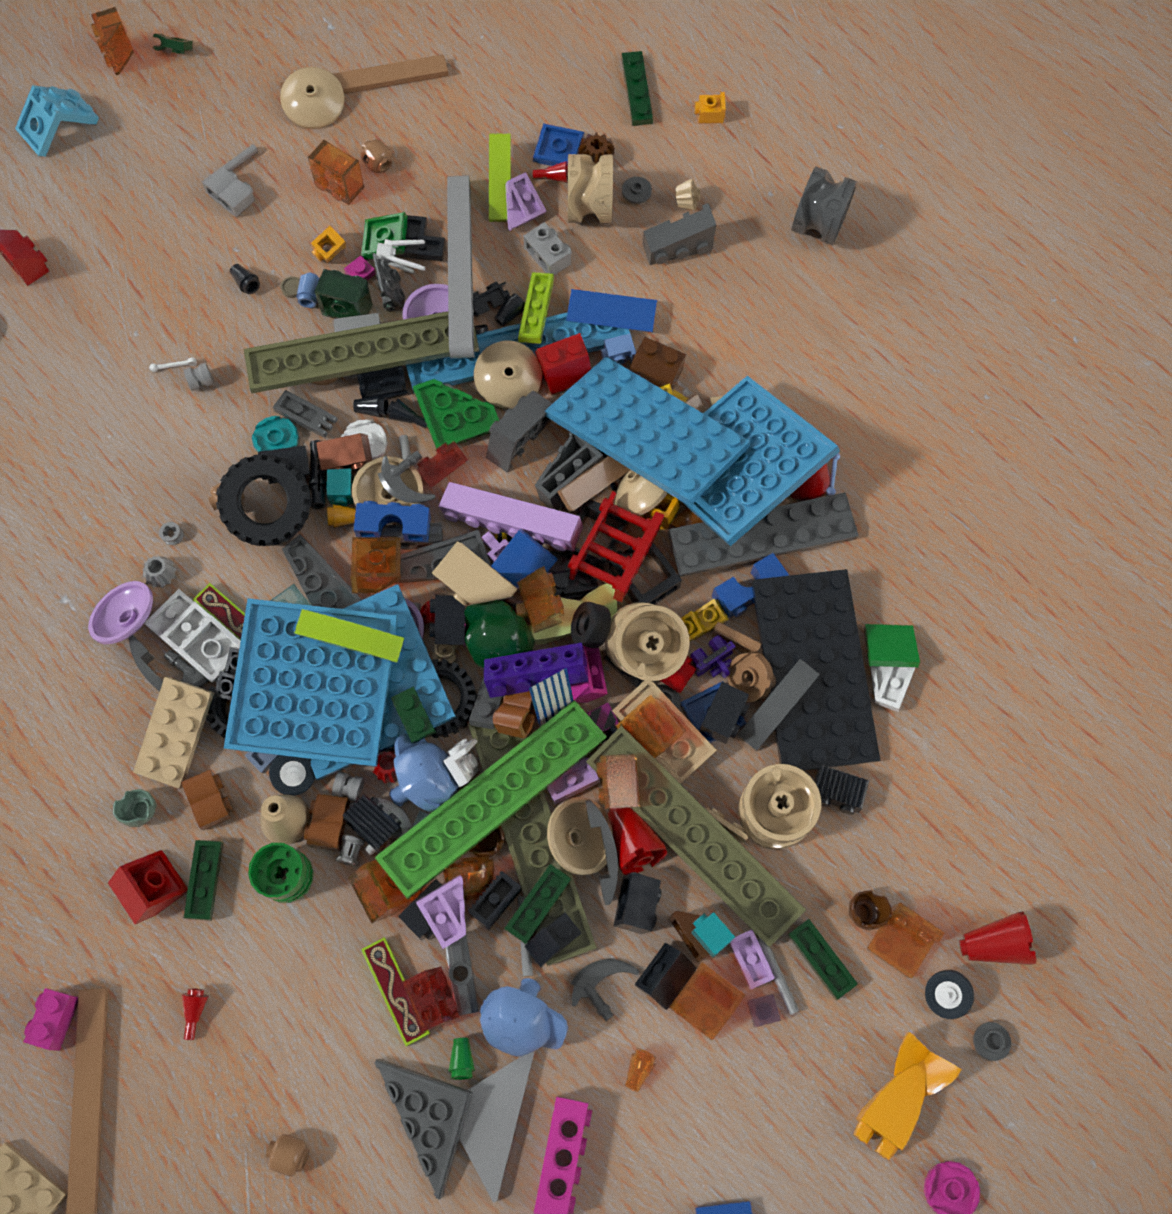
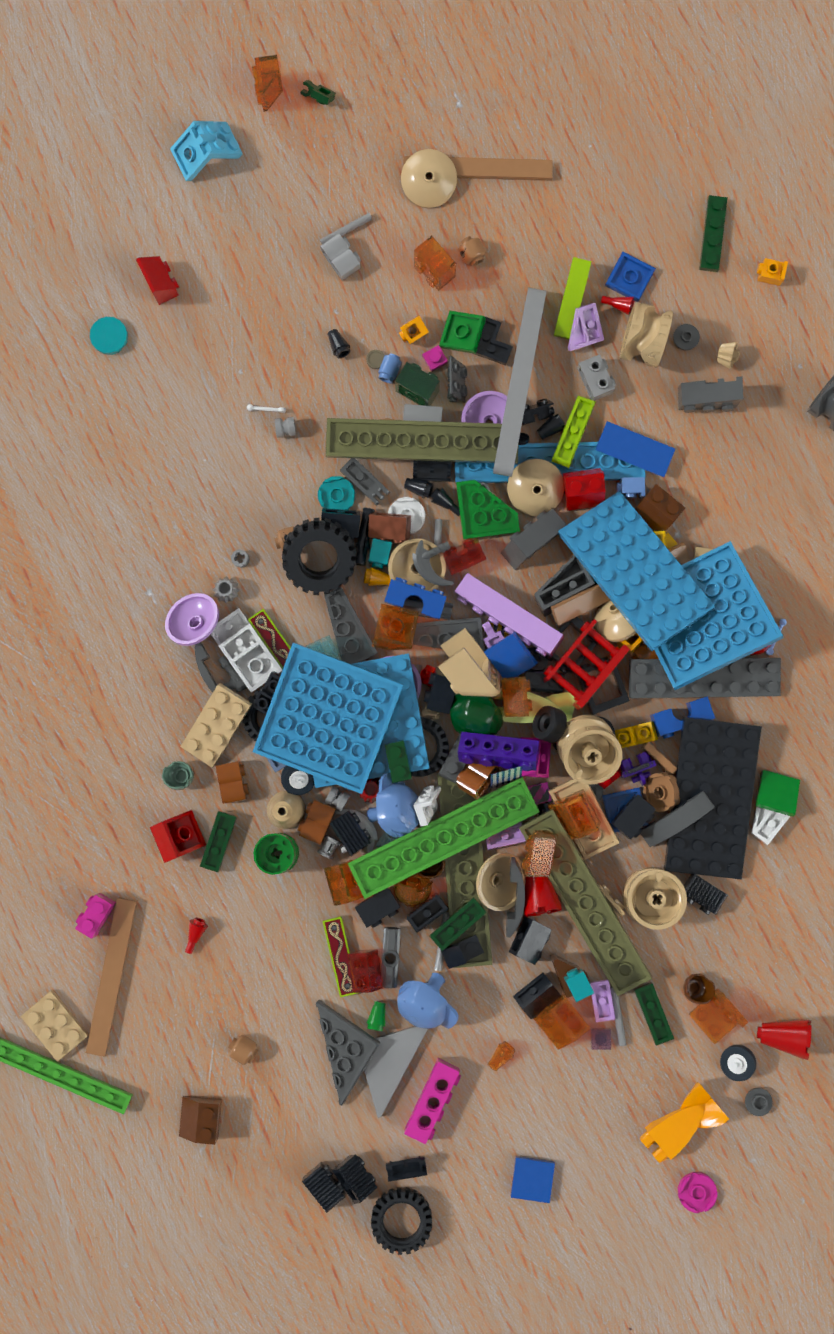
camera: 15 degrees right, 15 degrees up
(349, 635) = (364, 694): lime slope -> none
(387, 253) = (461, 353): white plant -> none
(445, 911) = (390, 915): lavender wing -> none
(591, 975) = (483, 981): dark grey piece -> none
(596, 146) = (668, 289): reddish brown gear -> none

